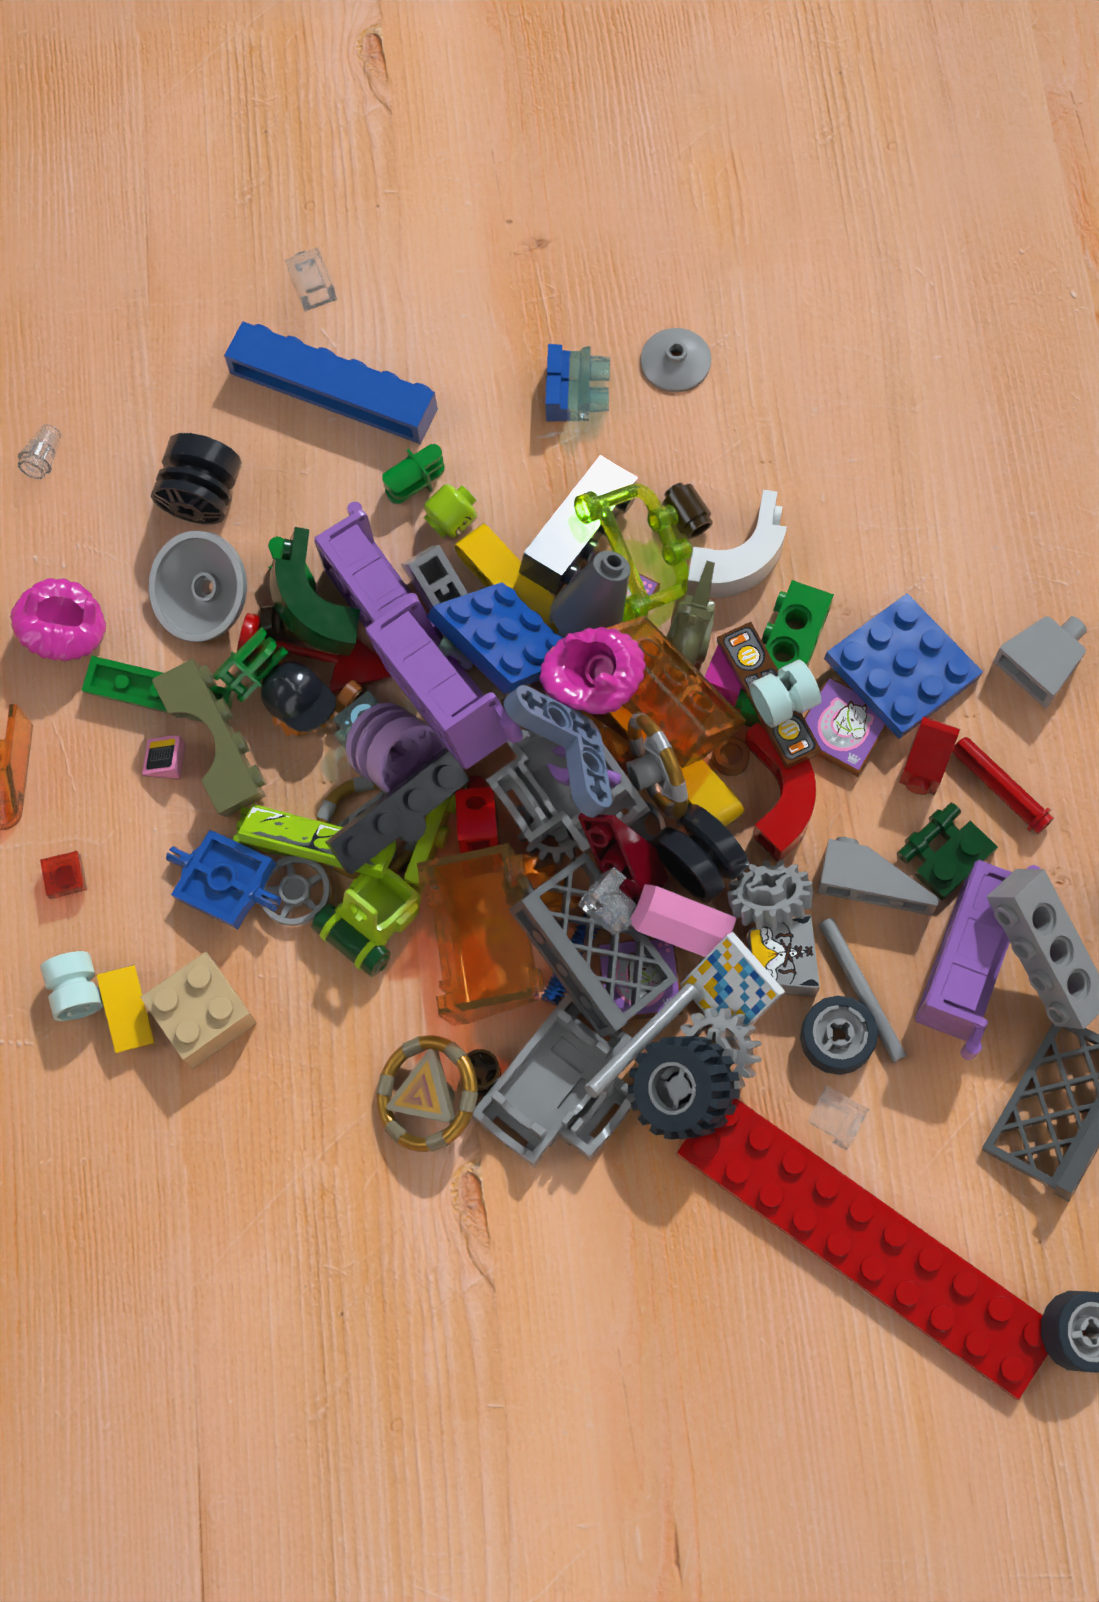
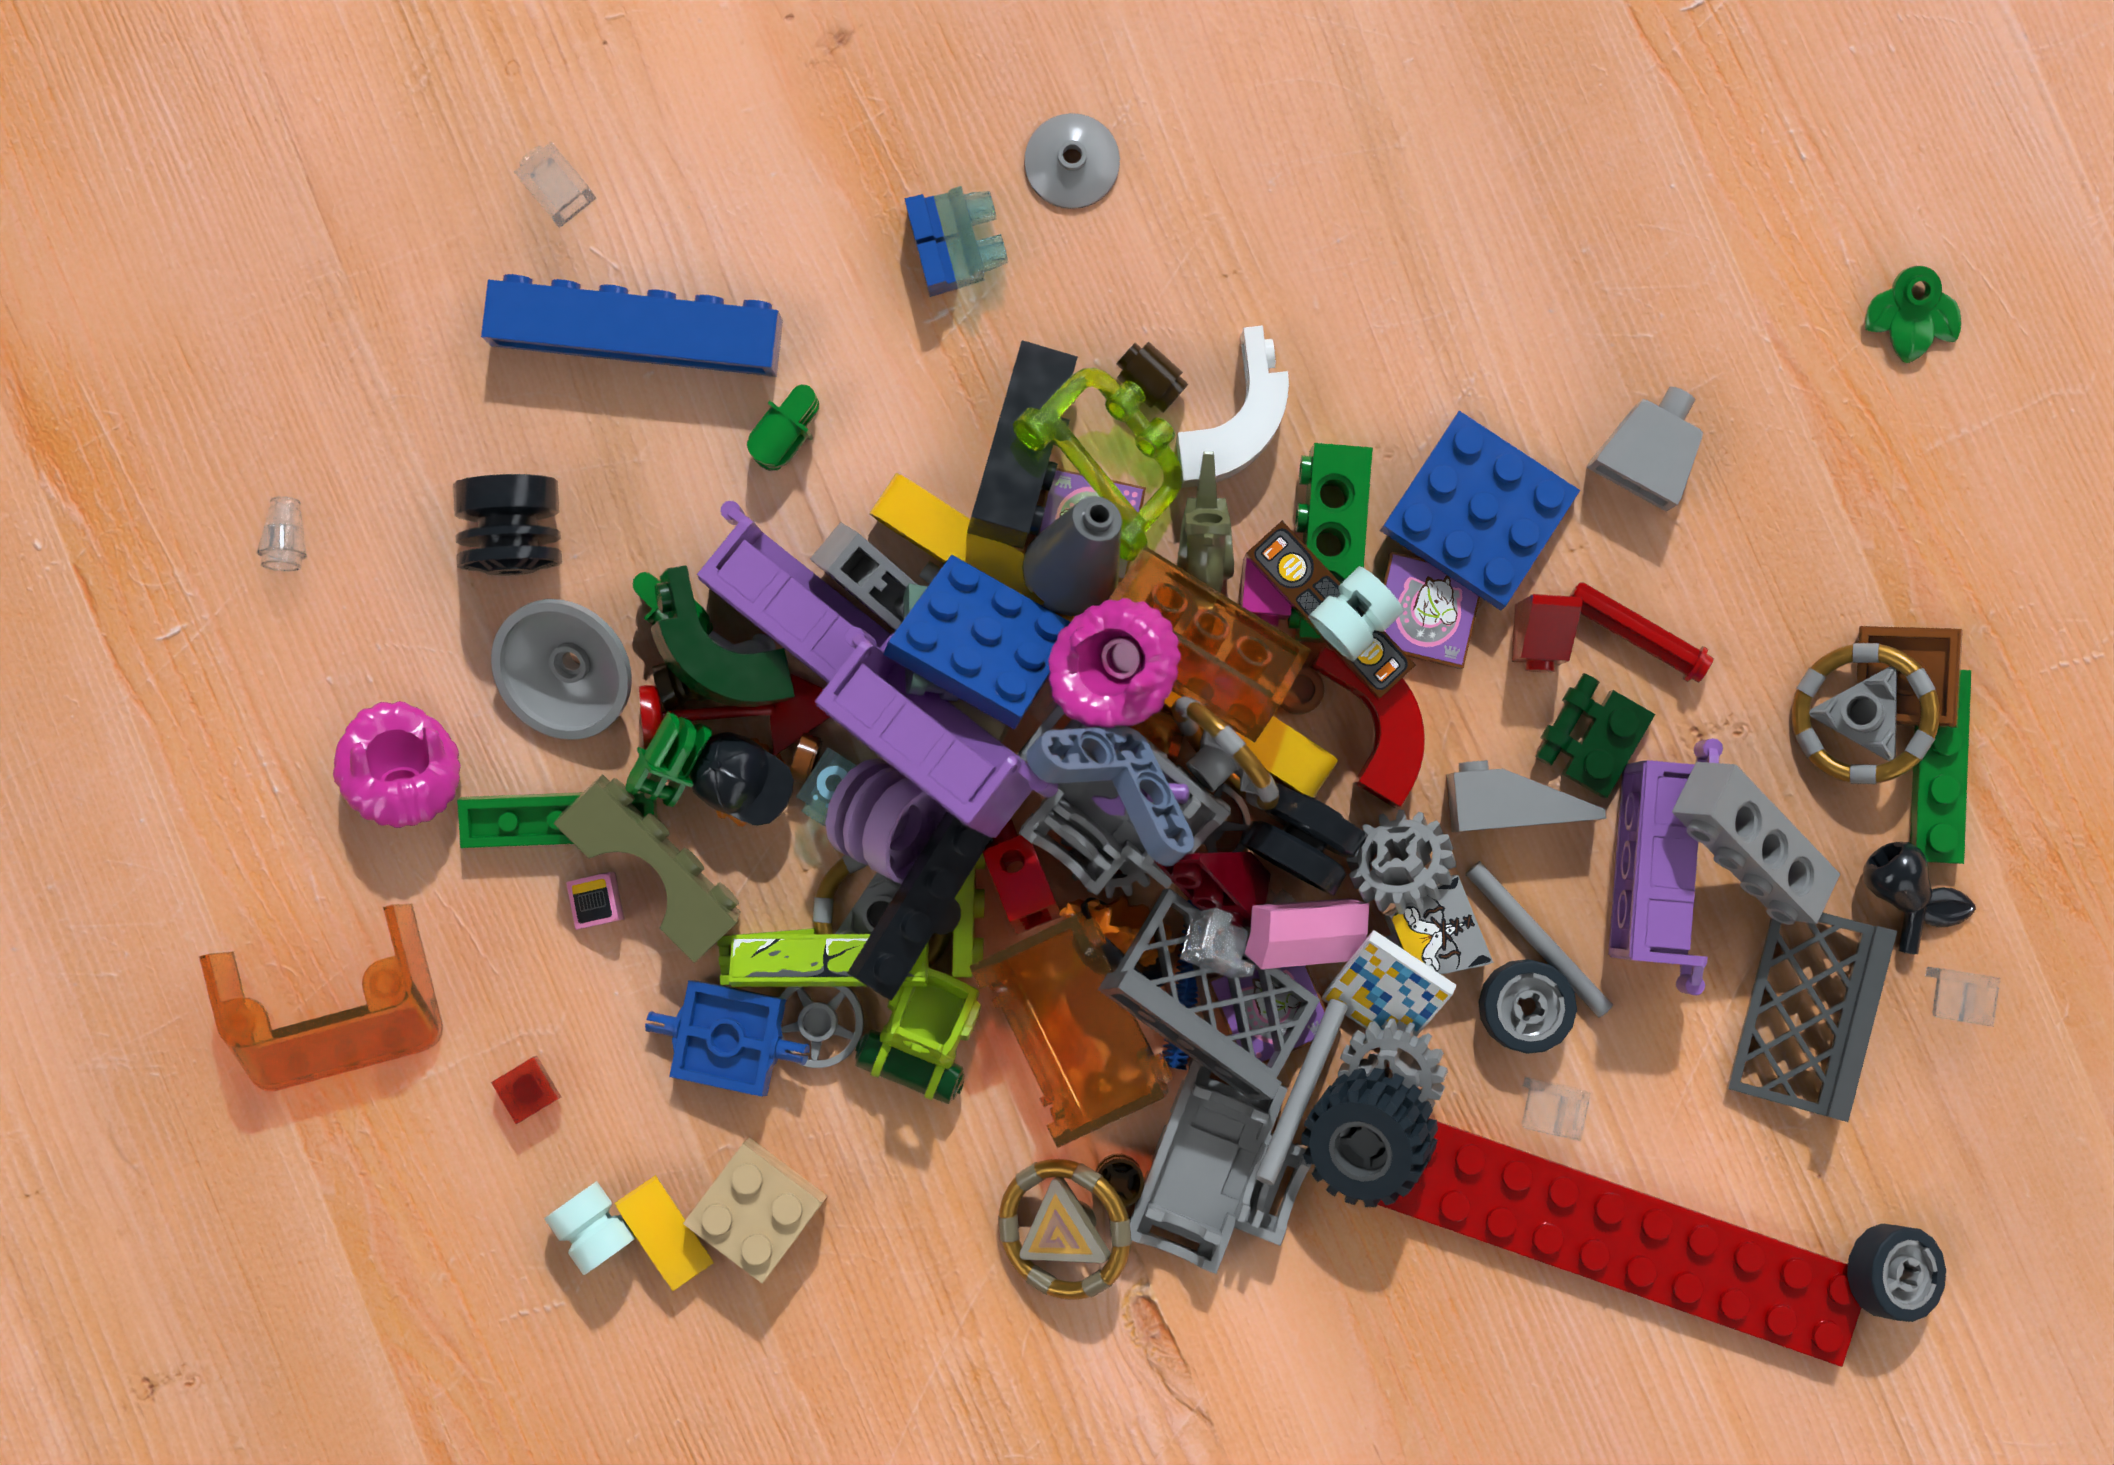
camera: 25 degrees left, 15 degrees up
(450, 510) = (849, 466): lime head -> none

